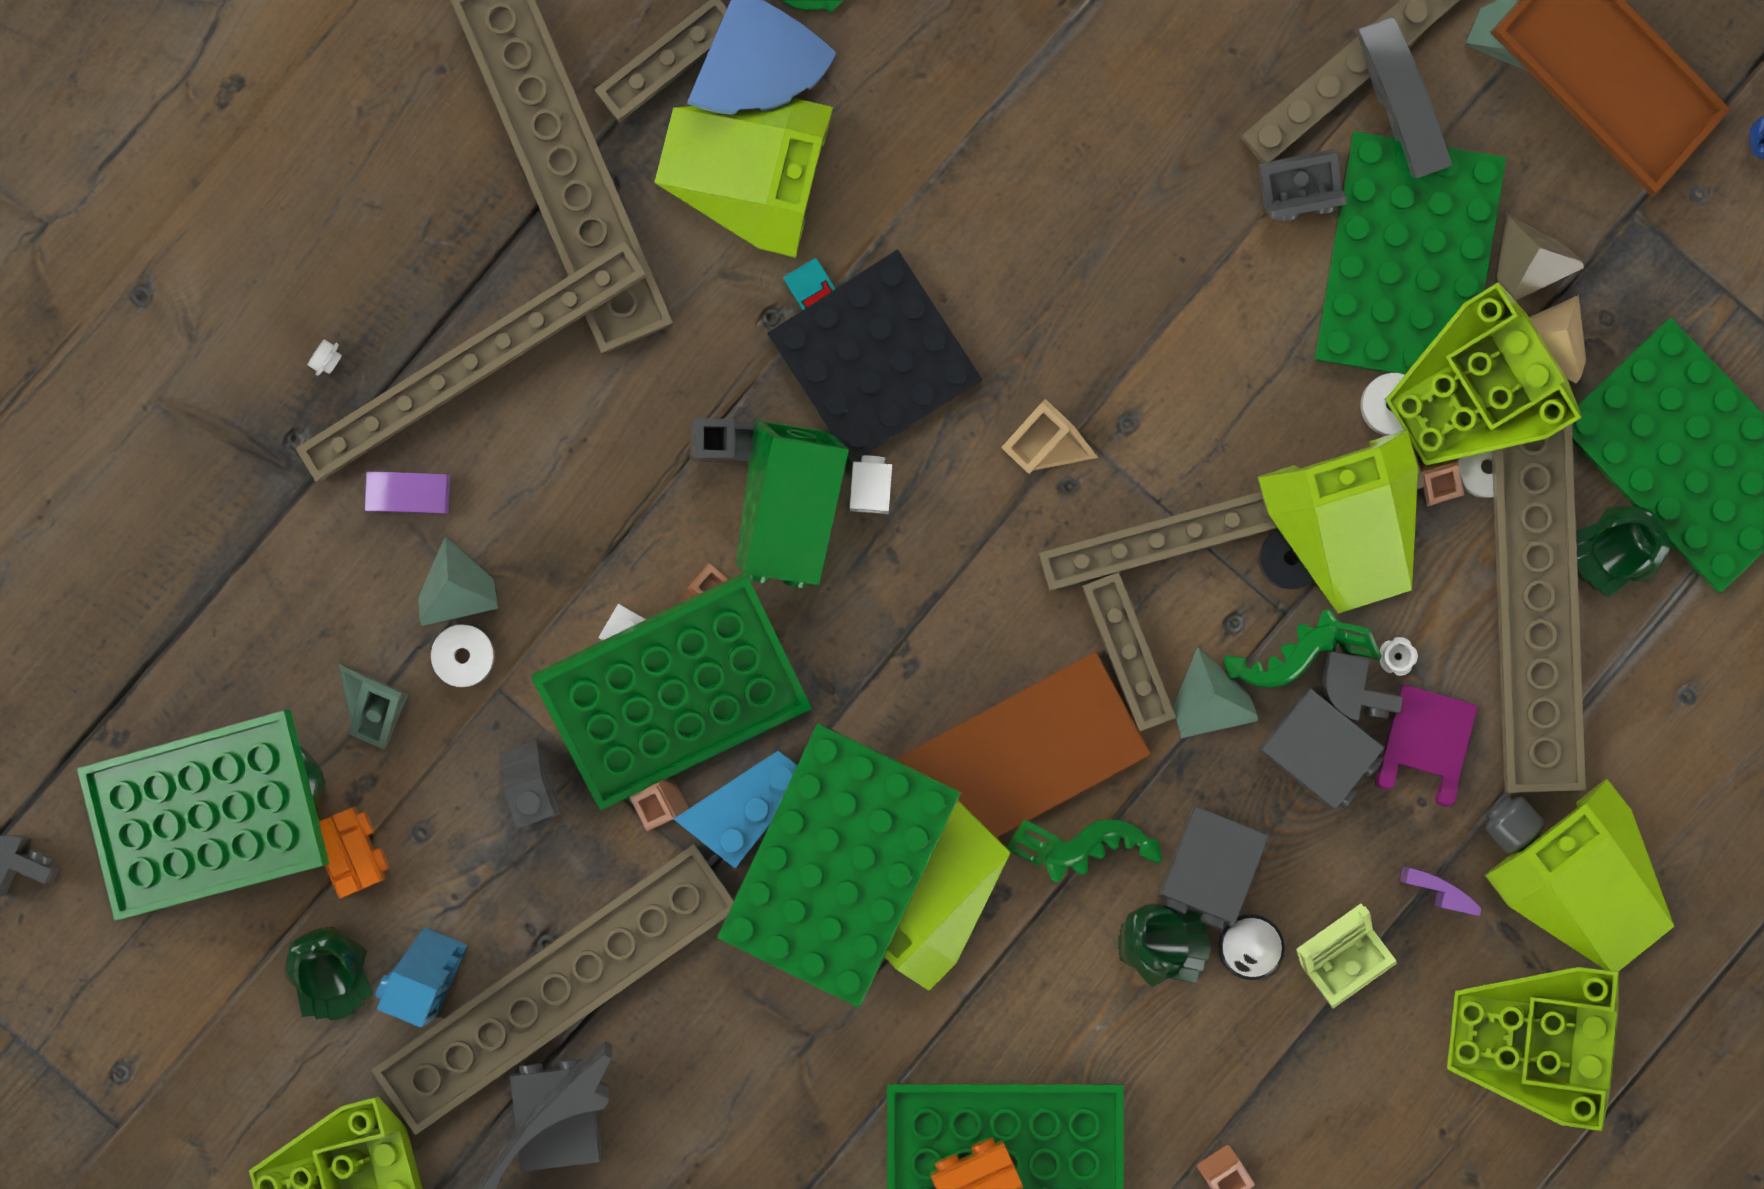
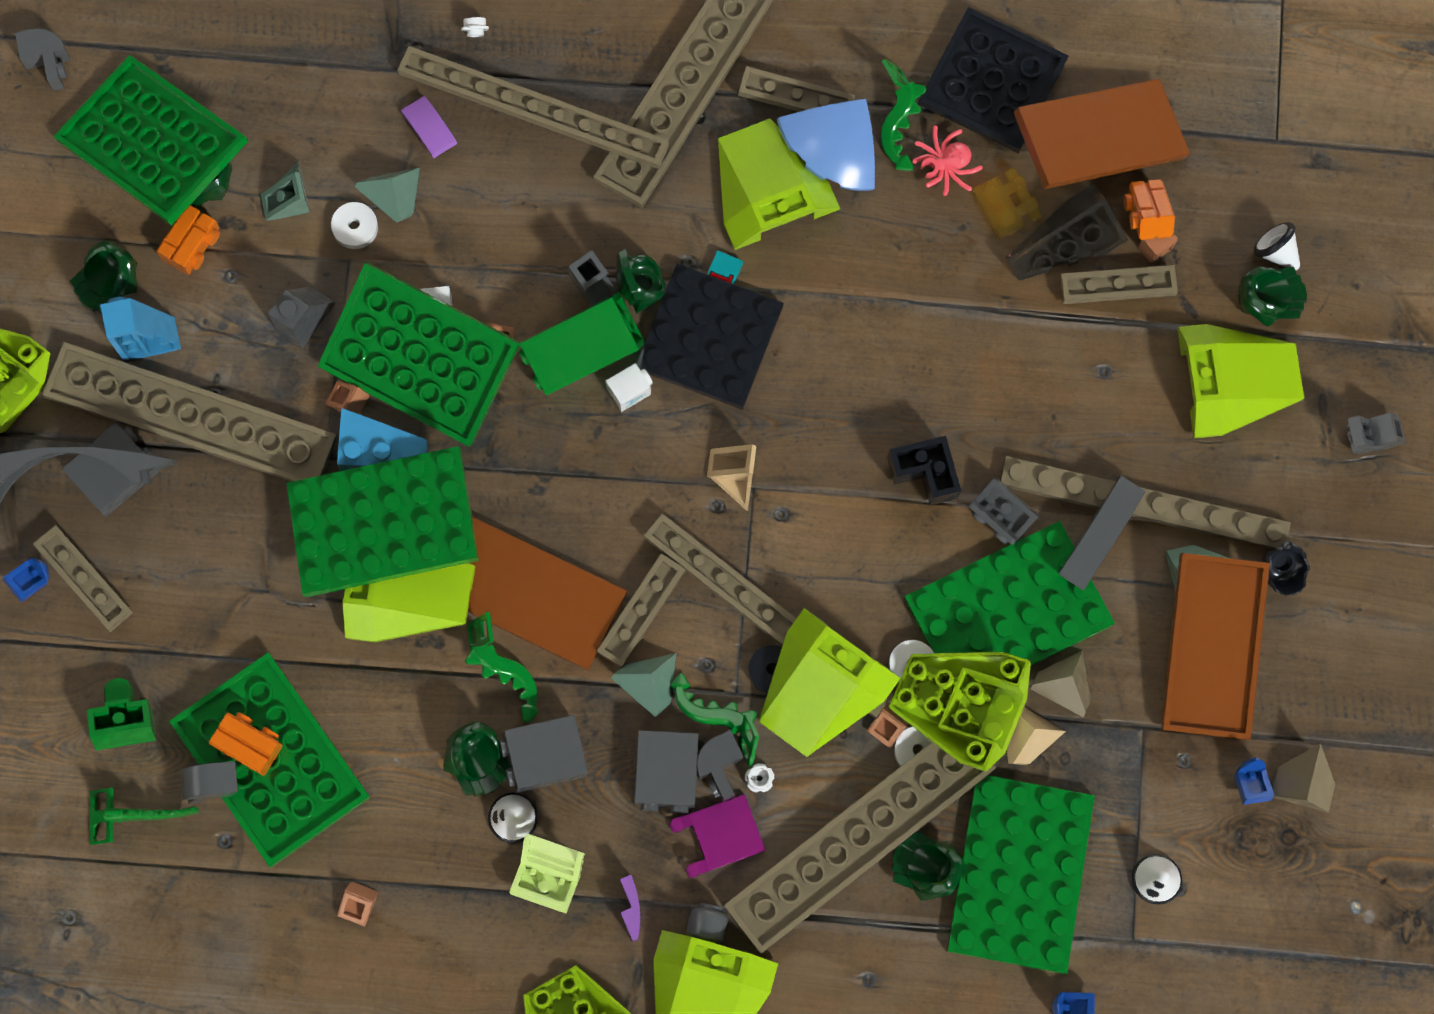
camera: 55 degrees right, 10 degrees down
(760, 389) = (639, 280): none -> dark green hair
(1198, 221) = (928, 461): none -> black brick

